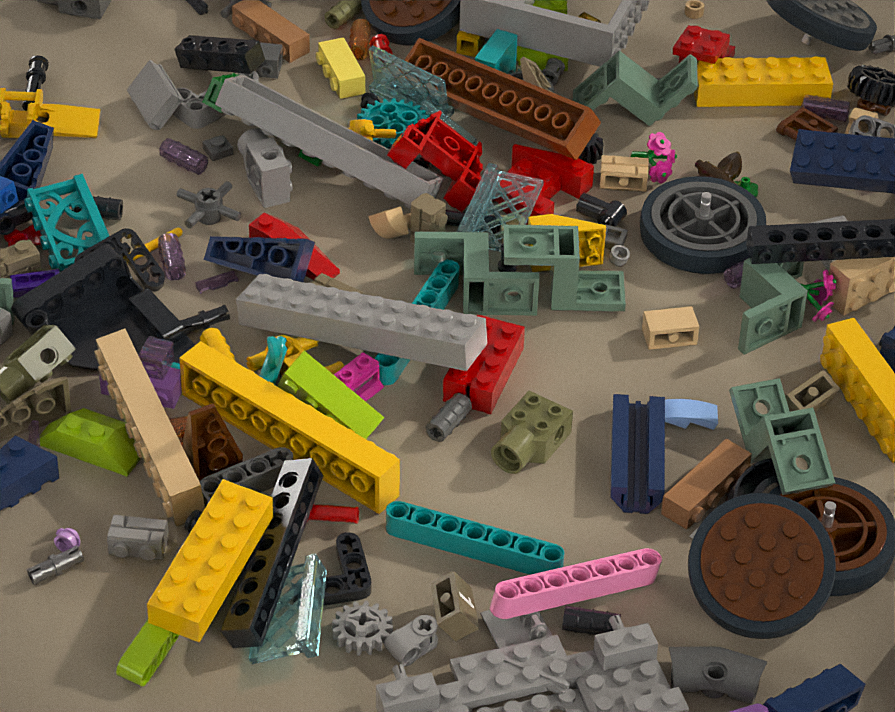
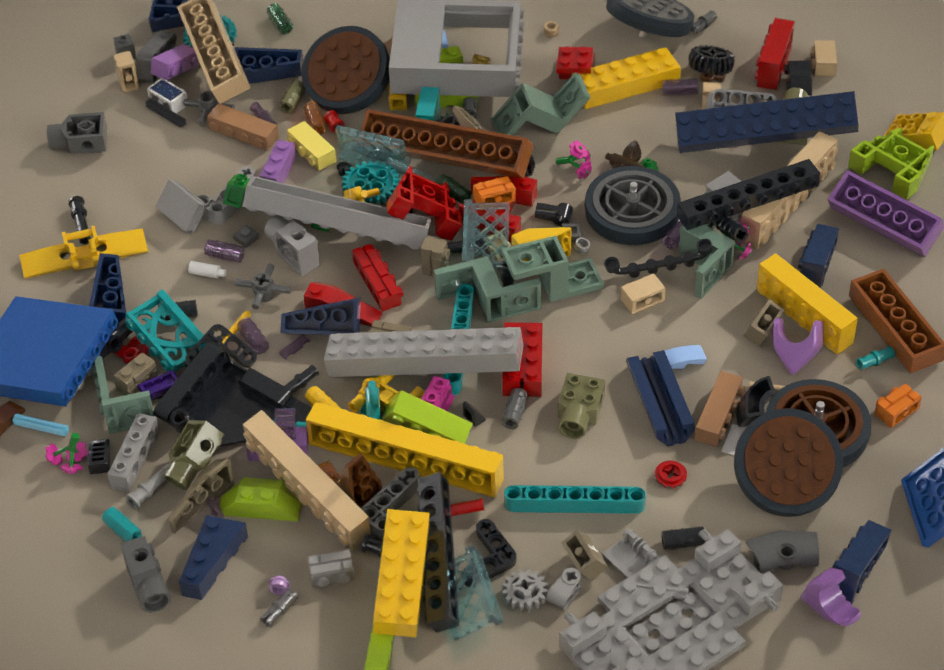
camera: 15 degrees left, 5 degrees up
(152, 172) = (206, 270): none -> white cylinder
(219, 54) = (216, 159): black brick -> none
(273, 60) = (253, 153): dark grey brick -> none
(294, 75) = (279, 162): none -> medium lavender brick
(300, 20) = (261, 113): none -> pin
(350, 229) = (377, 277): none -> red brick
(391, 223) = (407, 264): tan brick -> none
(394, 410) = (472, 414): none -> black slope
(491, 153) = (457, 191): none -> axle
(533, 163) = (494, 191): none -> orange brick
(575, 583) = (663, 513): bright pink beam -> none
(610, 536) = (666, 468): none -> red gear
(624, 173) = (557, 178): tan brick -> none
(764, 289) = (670, 262): none -> black bar
(782, 436) = (768, 359): sand green bracket -> none
(804, 120) = (673, 103): reddish brown plate -> none
(811, 277) = (732, 229): none -> black axle
(848, 442) = (793, 354): none -> medium lavender animal

